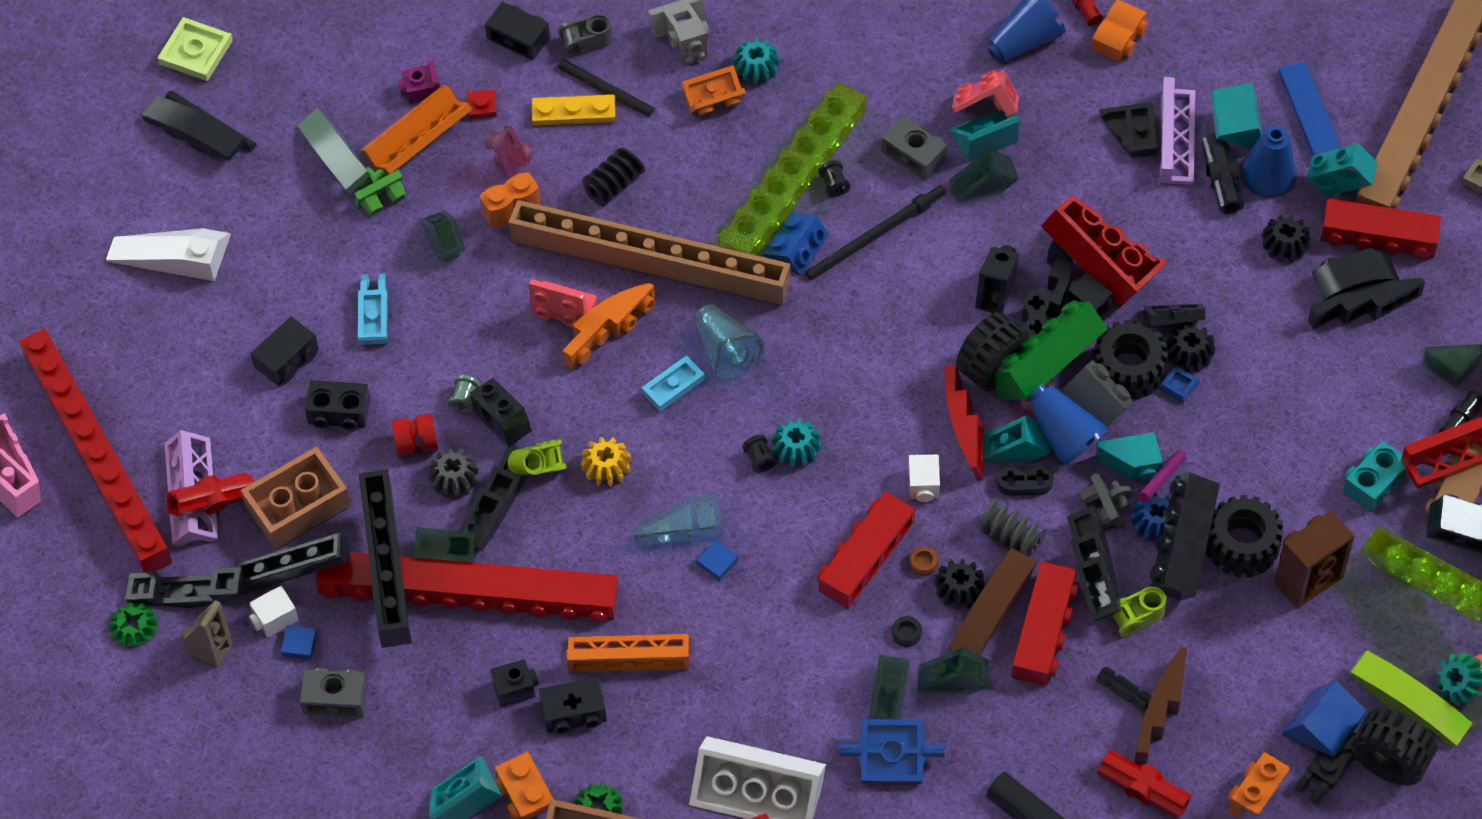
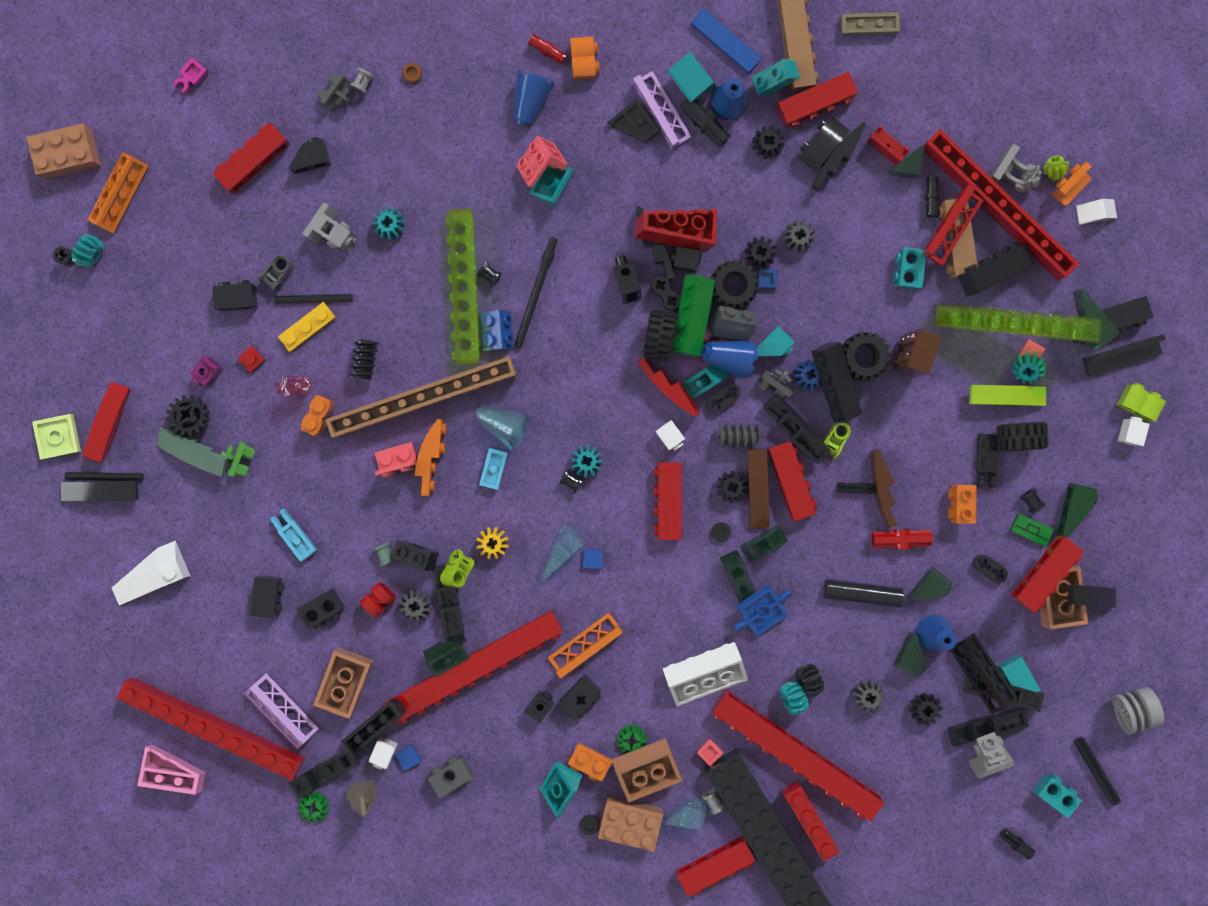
camera: 30 degrees left, 30 degrees up
(208, 495) = (297, 715): red piece -> none
(262, 65) = (105, 422): none -> red slope
(360, 113) = (192, 409): none -> black gear
(384, 558) = (424, 695): black brick -> none
(415, 130) = (227, 405): orange fence -> none
(443, 235) = (295, 462): slope -> none
(713, 90) = (379, 261): orange bracket -> none
(899, 145) = (529, 229): dark grey brick -> none
(923, 561) = (701, 483): dark orange tile -> none
(984, 176) = (573, 216): slope -> none
(1161, 477) = (798, 349): magenta bar -> none
(1171, 314) = (738, 238): black wing -> none
(1254, 357) = (794, 229): none -> dark grey gear
(1326, 719) = (971, 439): blue slope -> none
(1438, 322) = (887, 145): none -> red hinge

